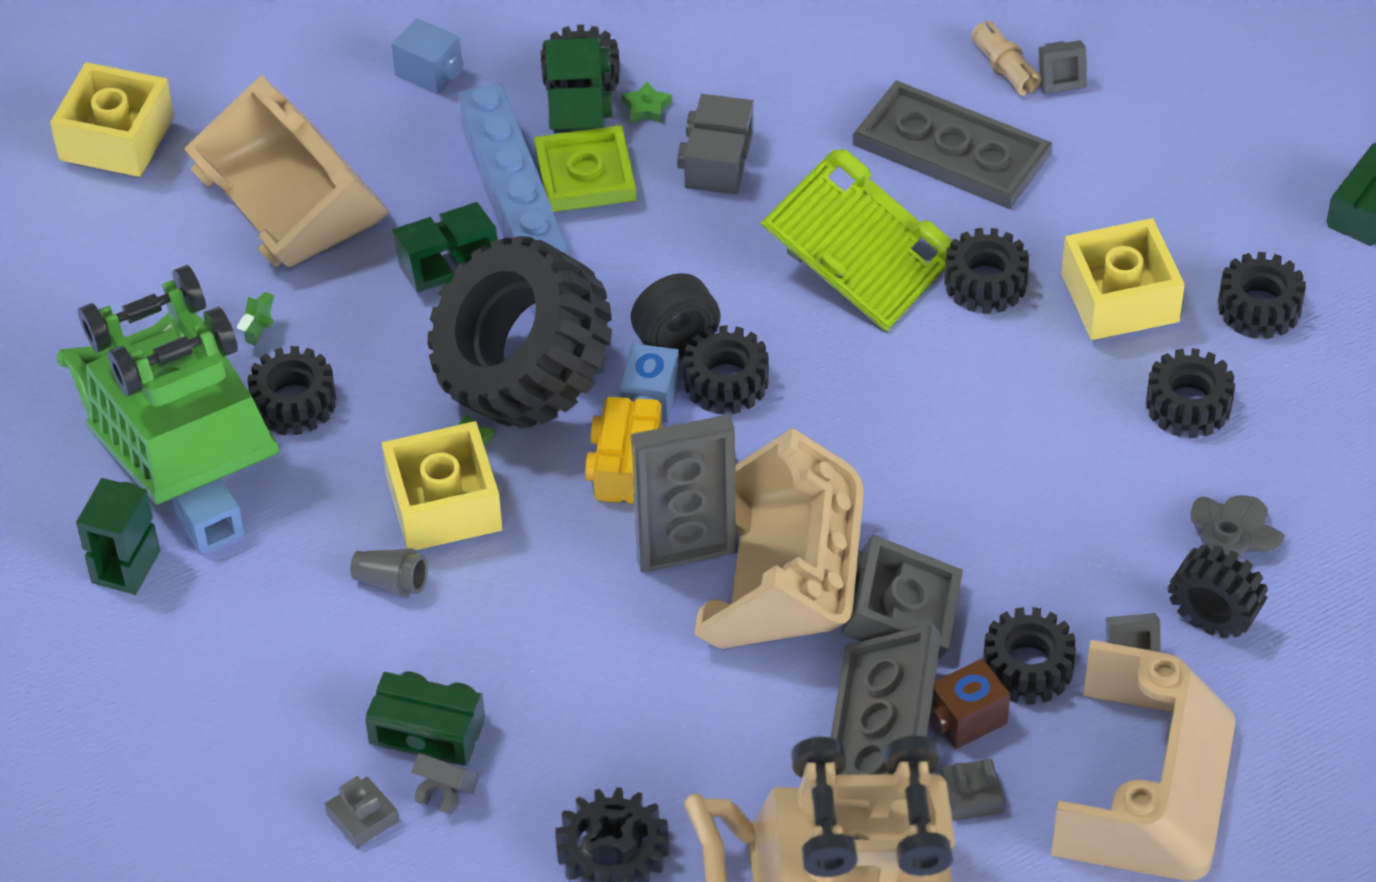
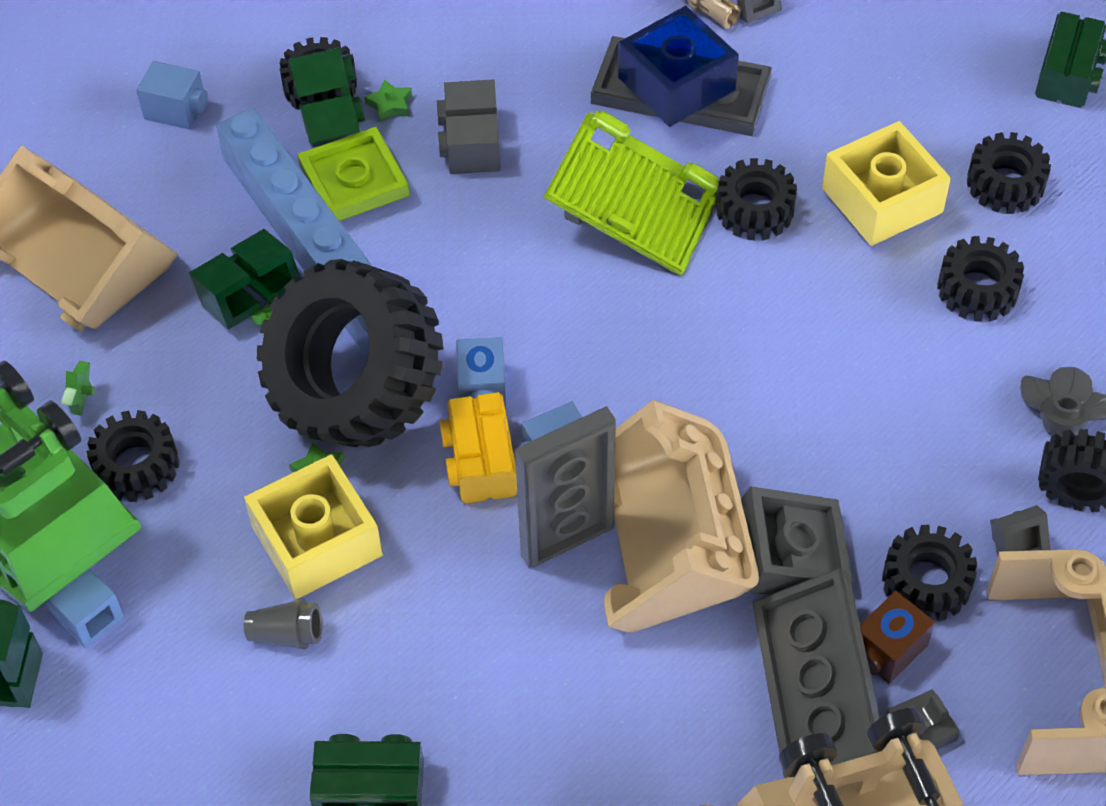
camera: 15 degrees left, 5 degrees up
(665, 299) = (488, 302): black tyre -> none
(726, 389) = (548, 366): black tyre -> none
(944, 121) = (677, 66): none -> clear blue brick

